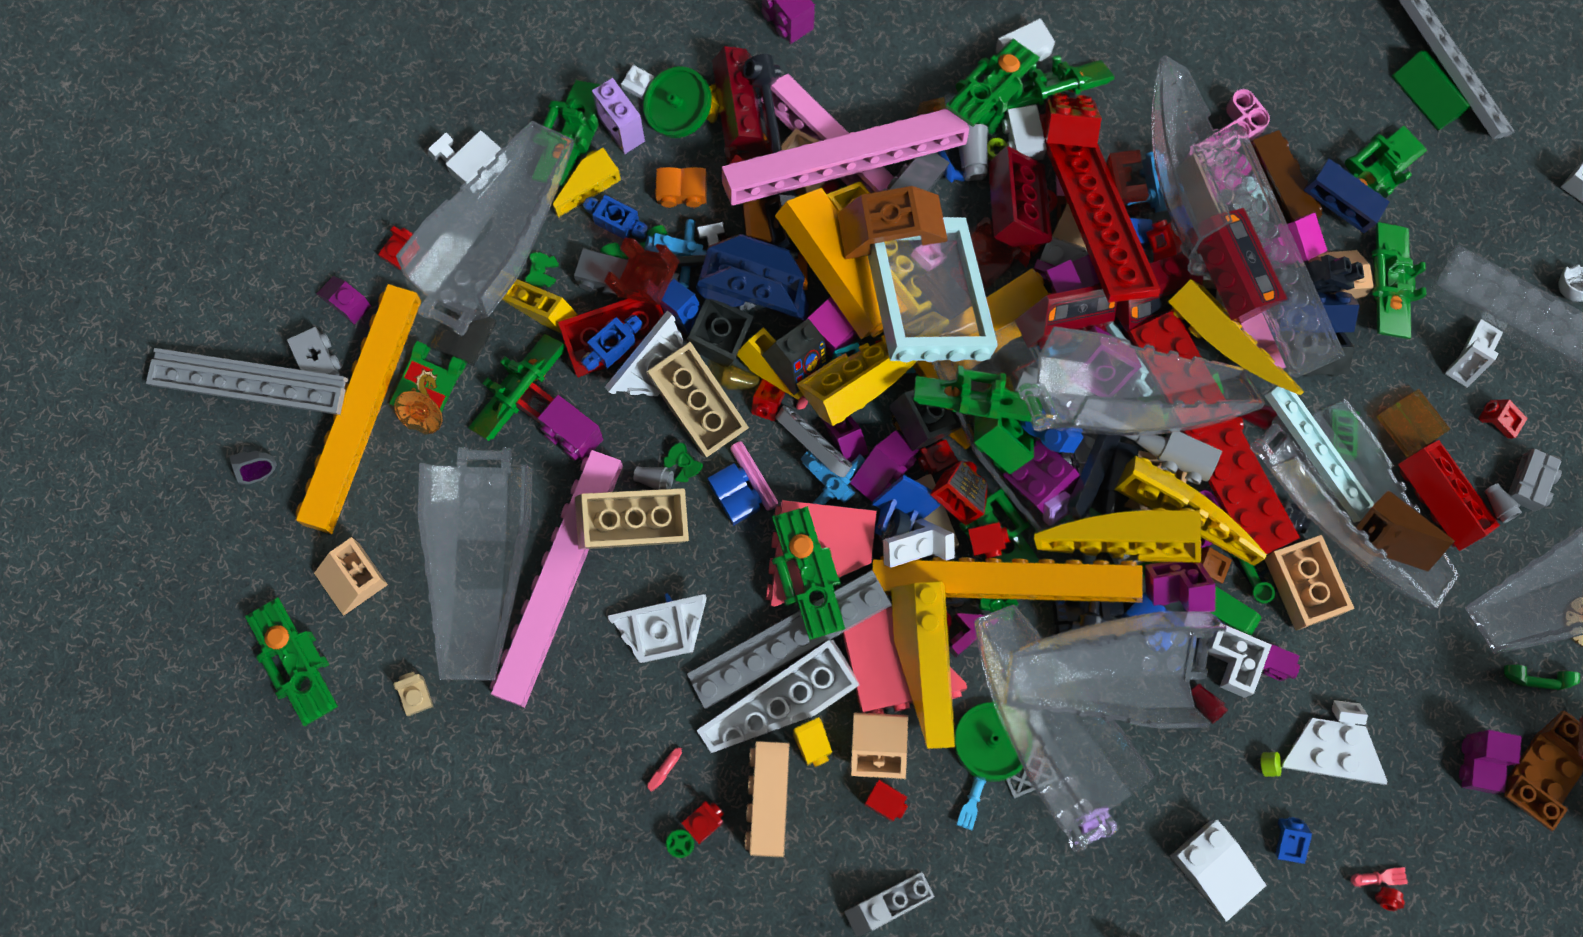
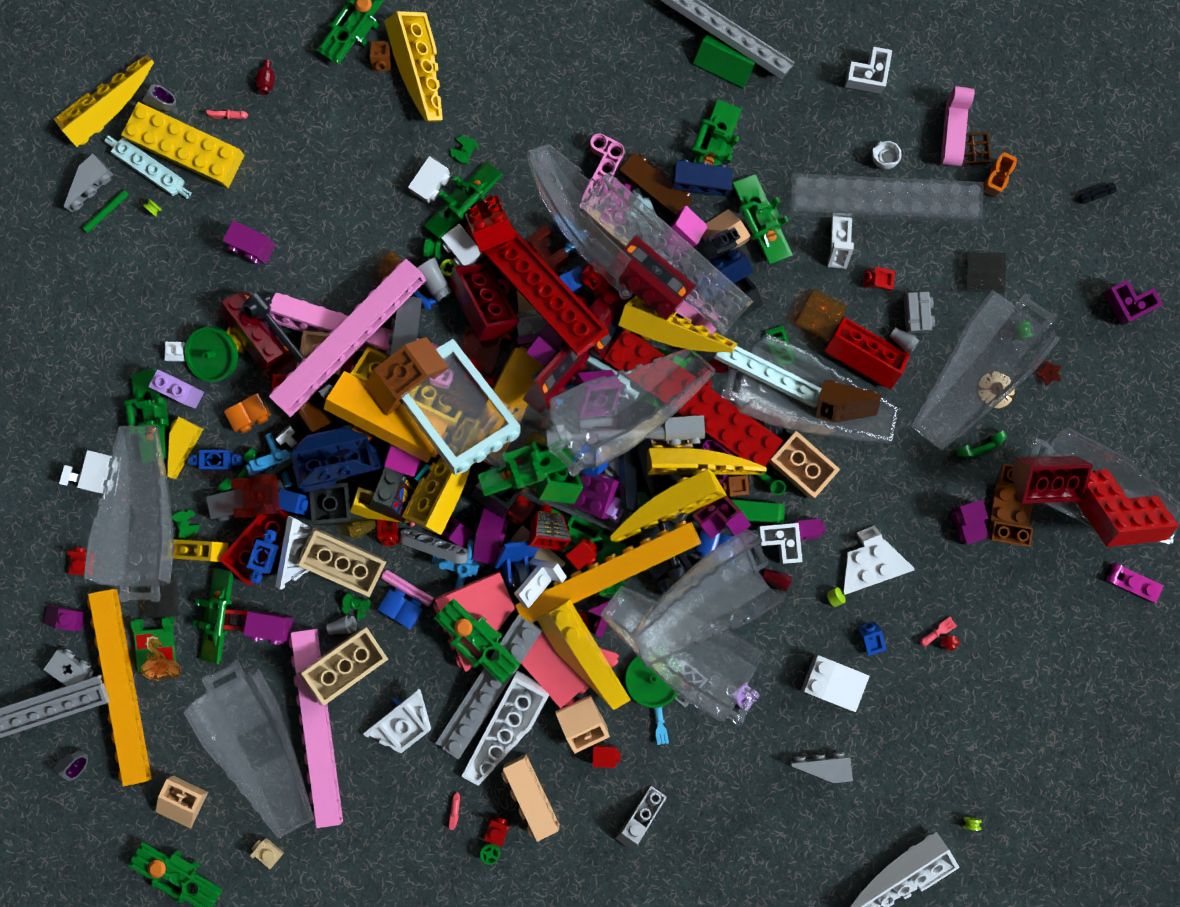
camera: 20 degrees left, 10 degrees up
(813, 742) = (539, 746): yellow slope -> none
(1002, 83) = (426, 229): green piece -> none
(1087, 34) = (468, 146): none -> green piece

